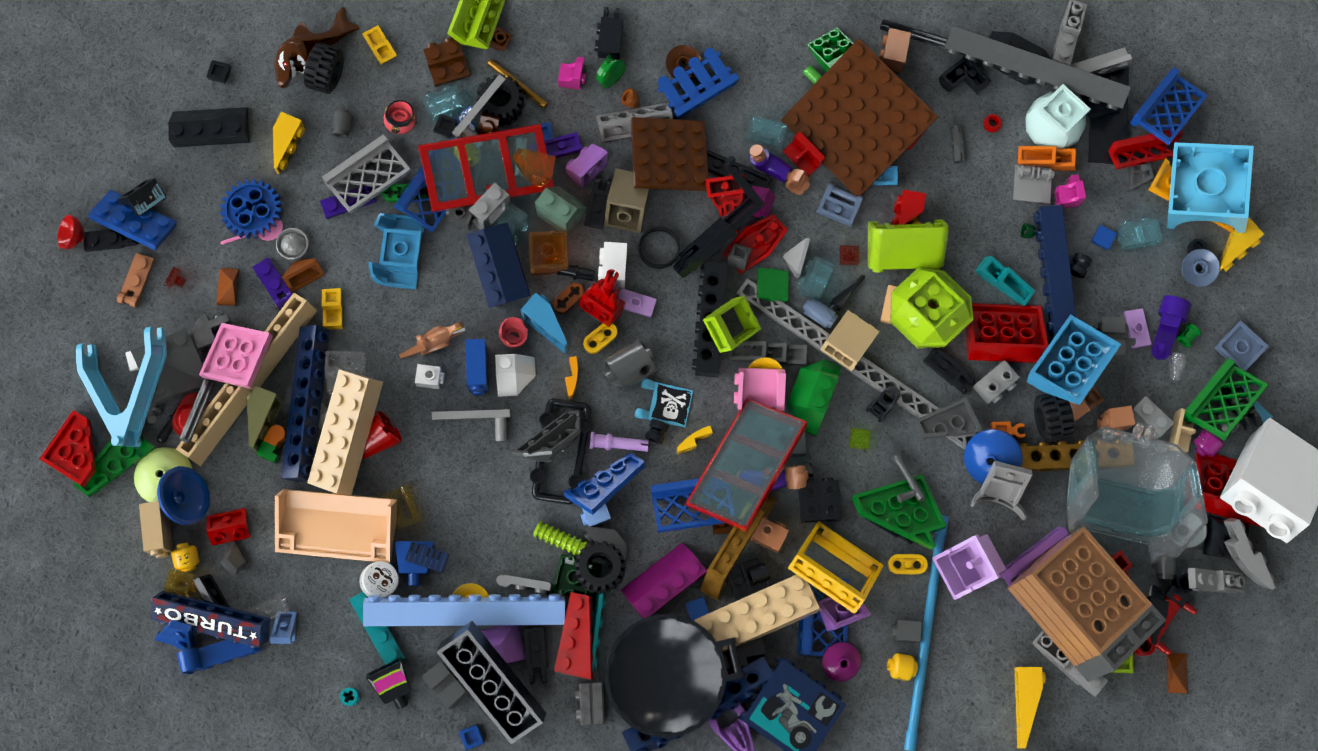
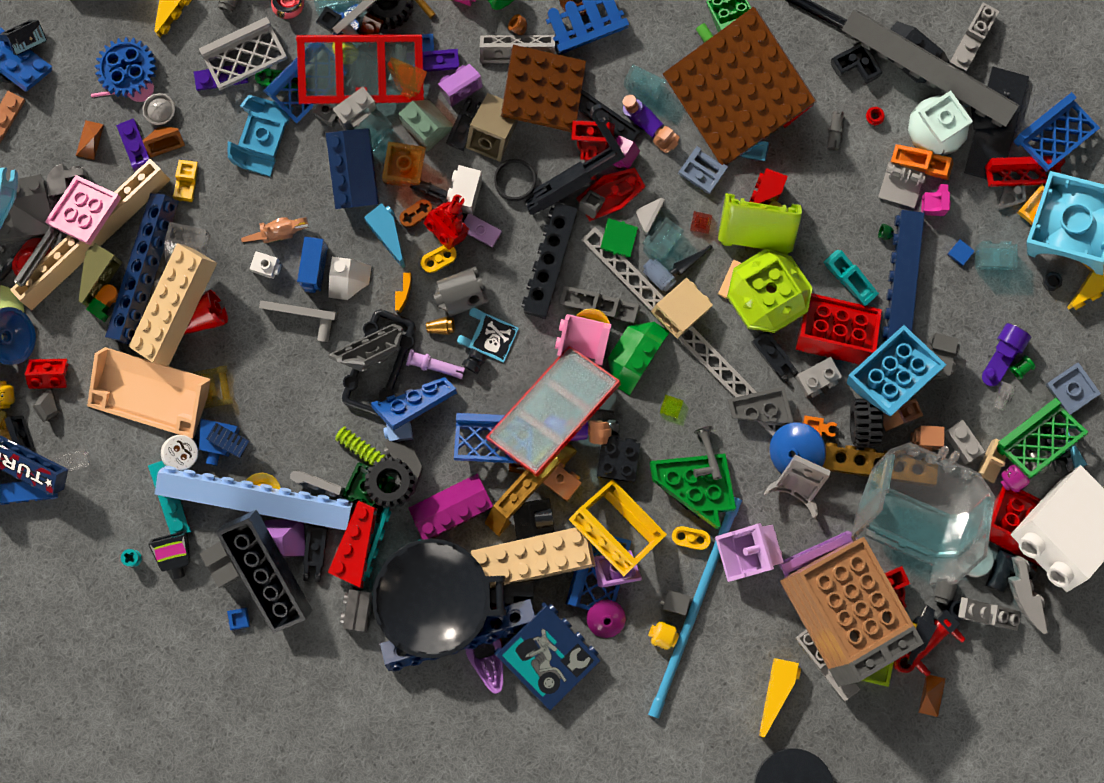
camera: 20 degrees right, 5 degrees up
(173, 278) = (38, 122): clear red tile -> none
(284, 629) = (81, 481): medium blue slope -> none
(513, 325) = (355, 230): coral hair -> none
(616, 403) = (441, 326): none -> pearl gold cone
(690, 444) = (503, 378): yellow slope -> none
(697, 608) = (478, 540): blue tile -> none
(720, 332) = (553, 275): lime window -> none
(804, 154) = (678, 113): red panel -> none
(882, 405) = (700, 377): black piece -> none
(895, 49) = (792, 24): nougat brick -> none
(1080, 265) = (929, 276): black wheel -> none
(1106, 62) = (1001, 76): light grey fence -> none
(1137, 327) = (973, 350): lavender plate -> none
(1209, 267) = (1060, 302): sand blue dish -> none

